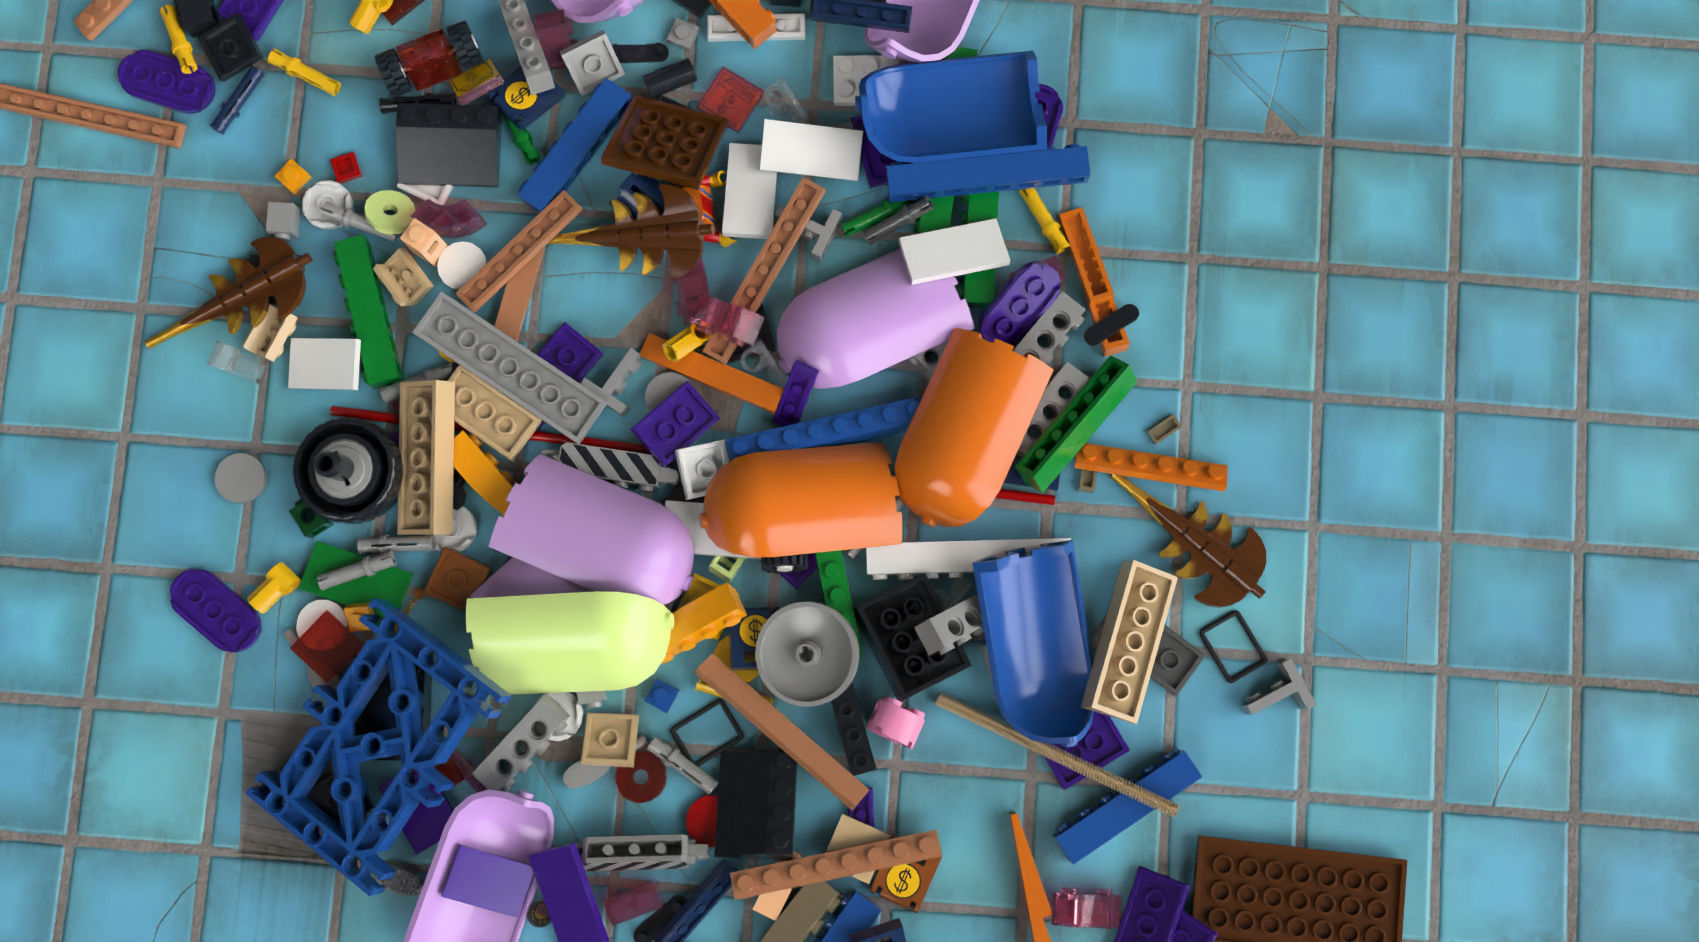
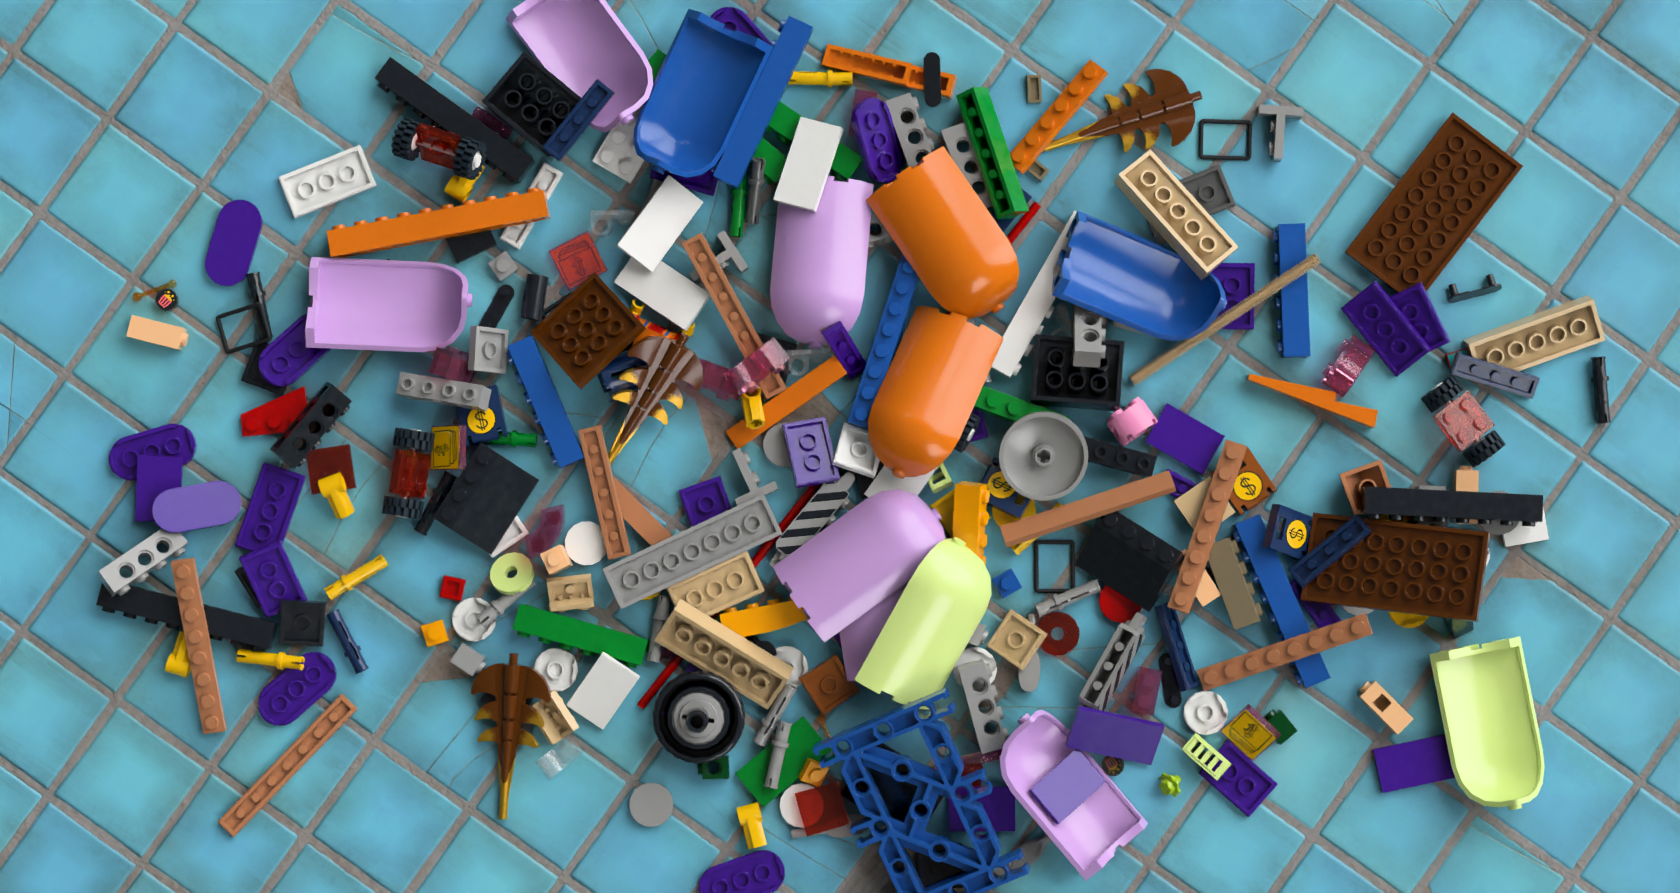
camera: 55 degrees left, 5 degrees up
(322, 310) = (558, 668): none -> white tile
(912, 787) = (1184, 439): none -> dark purple tile

